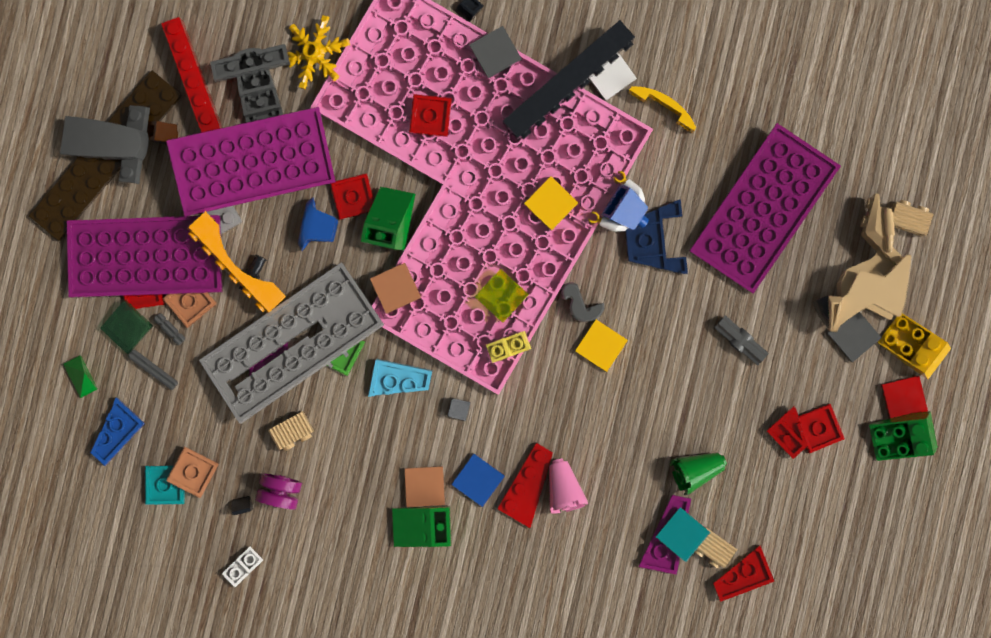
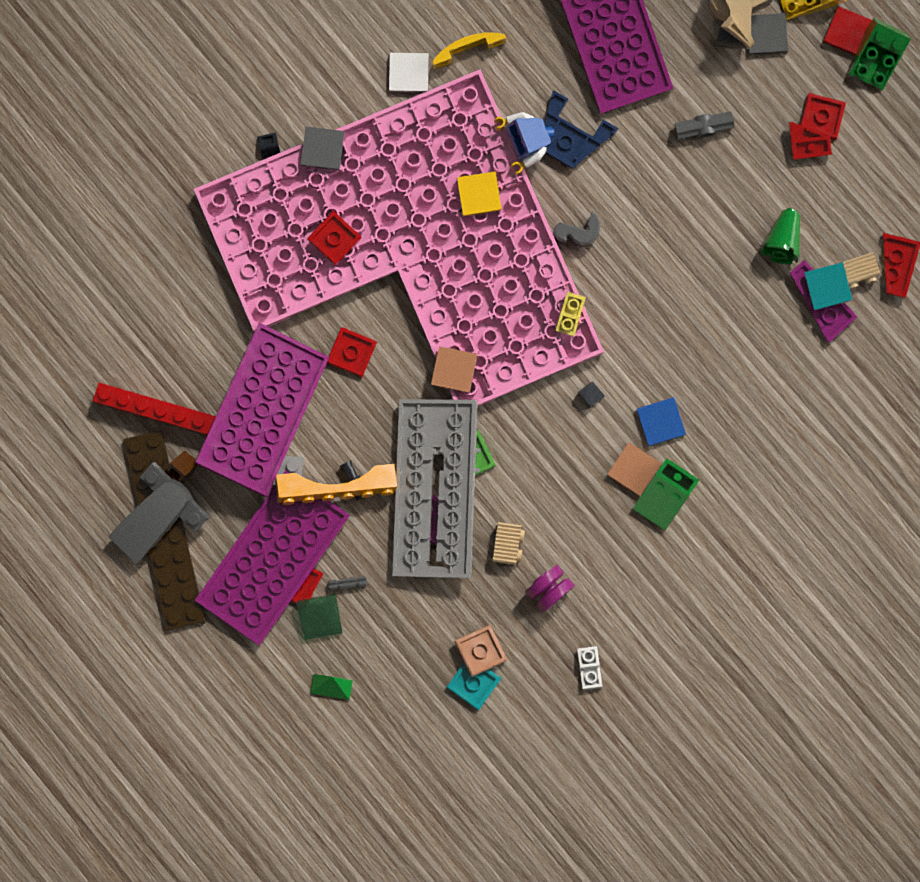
camera: 50 degrees left, 5 degrees down
(117, 431) = (400, 688): blue wing -> none
(152, 369) = (371, 621): dark grey axle -> none
(189, 306) = (341, 552): nougat tile -> none
(241, 505) = (538, 630): black slope -> none
(254, 79) = (195, 360): dark grey slope -> none
(315, 51) = (205, 298): yellow piece -> none
(316, 226) = (353, 397): blue piece -> none
(389, 219) = (393, 334): green slope -> none
(397, 378) = (527, 426): medium azure wing -> none
(501, 295) = (524, 288): clear neon green tile -> none
(526, 488) = (698, 389): red wing -> none
(564, 488) = (720, 355): bright pink cone -> none
(568, 80) = (390, 106): black brick -> none
(601, 345) = (624, 241): yellow tile -> none

